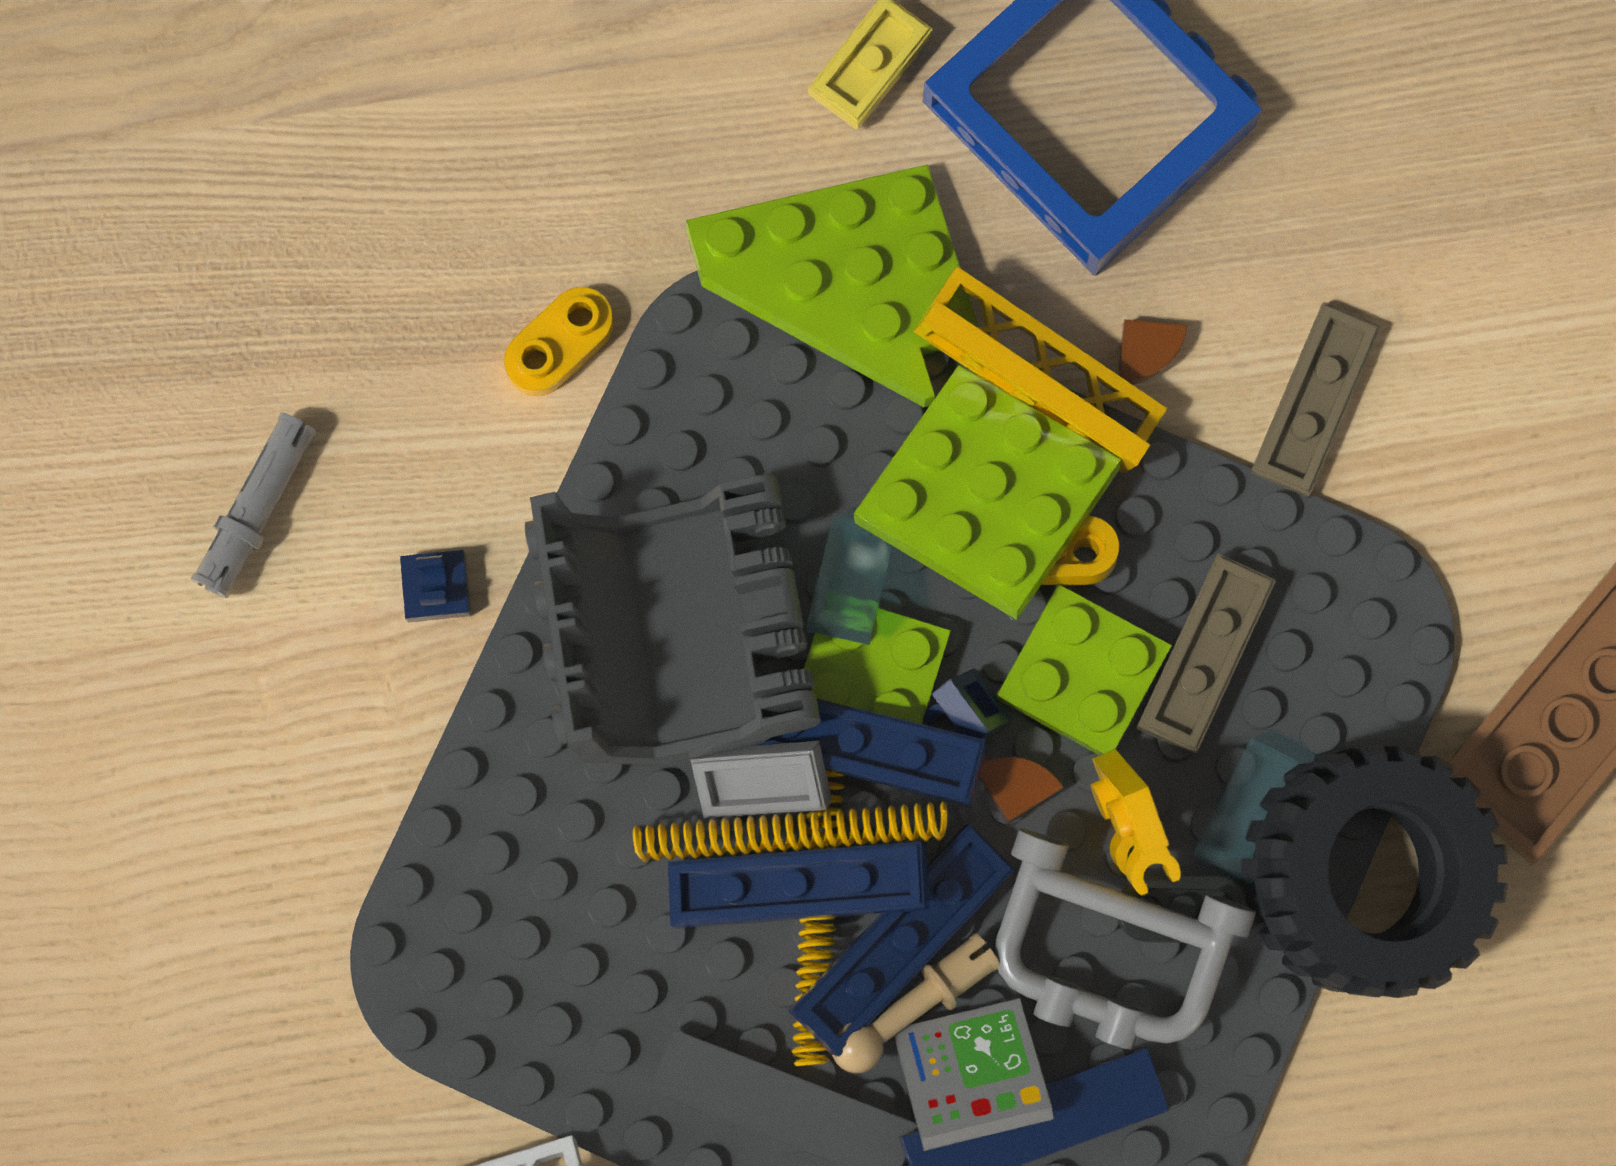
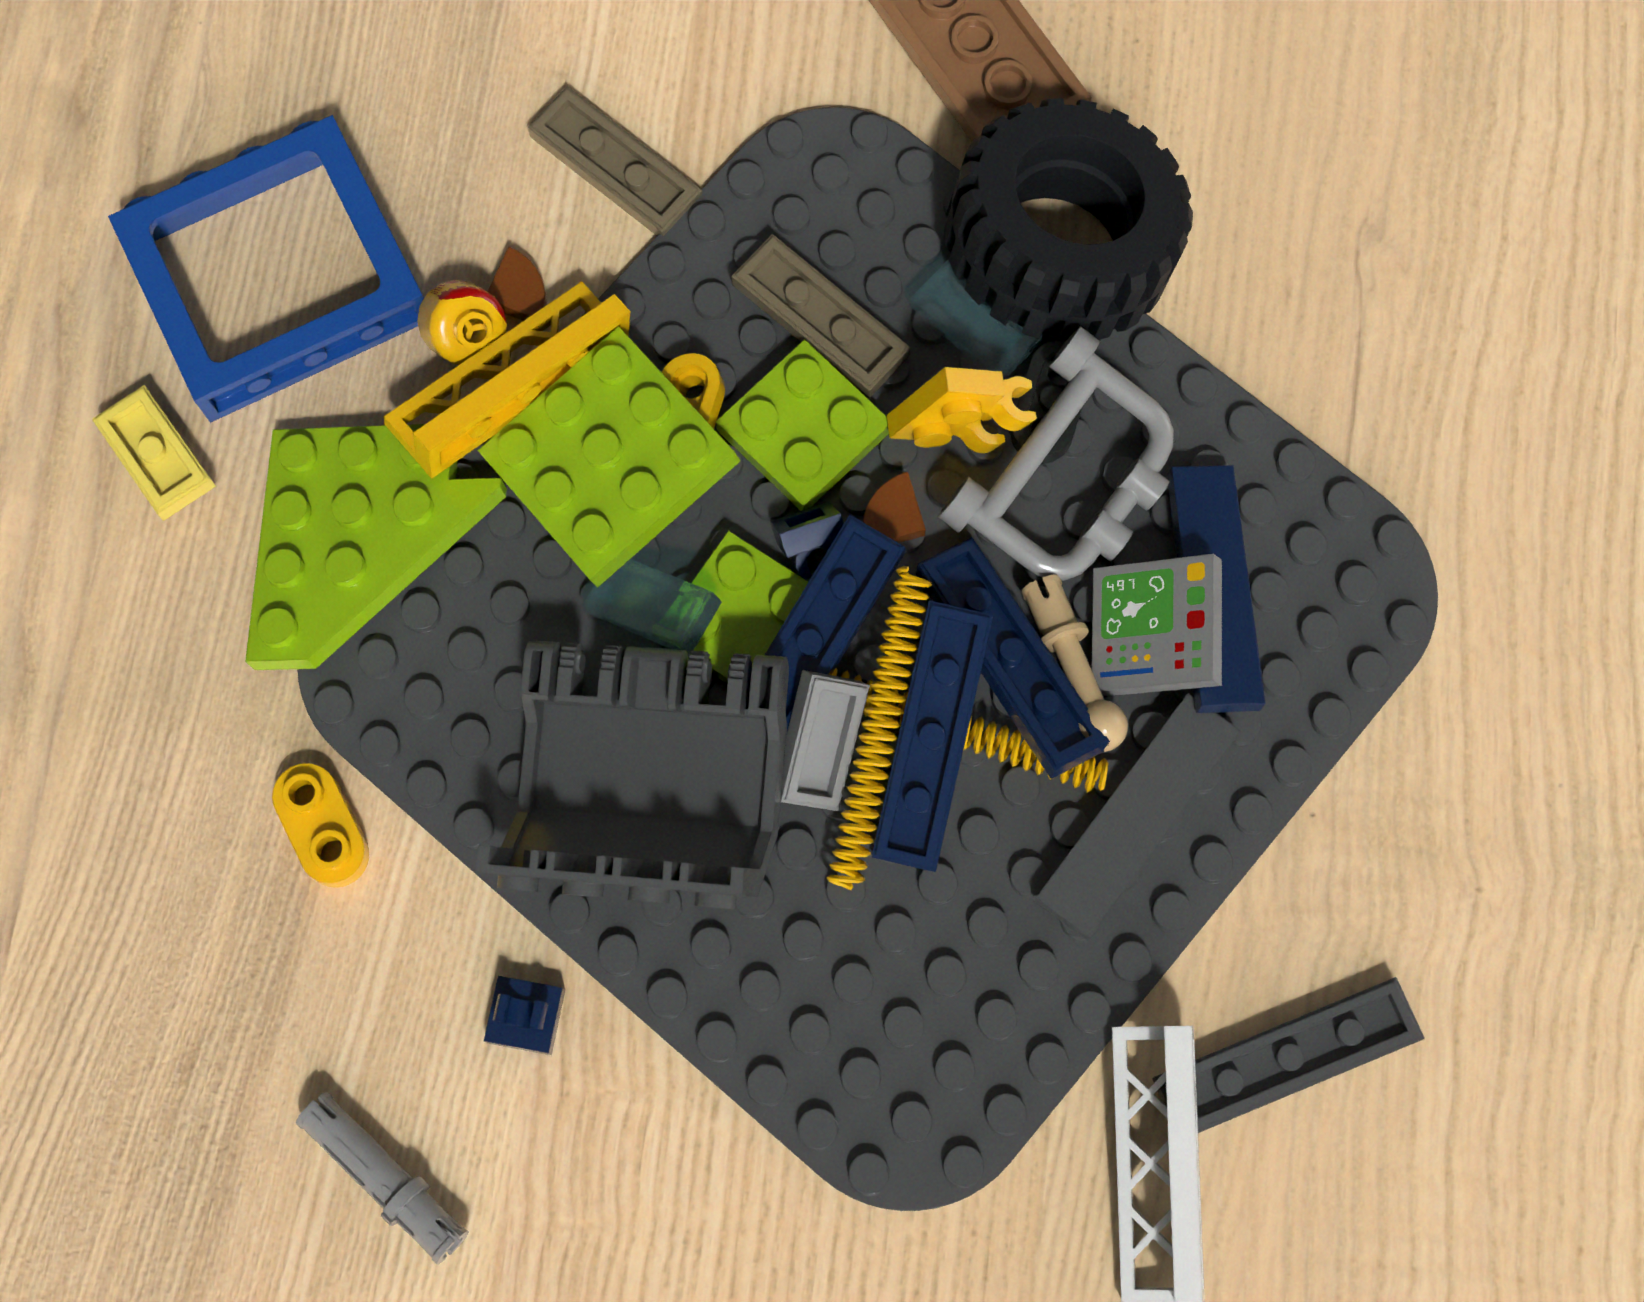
camera: 75 degrees left, 5 degrees down
(1087, 305) = (460, 320): none -> yellow head

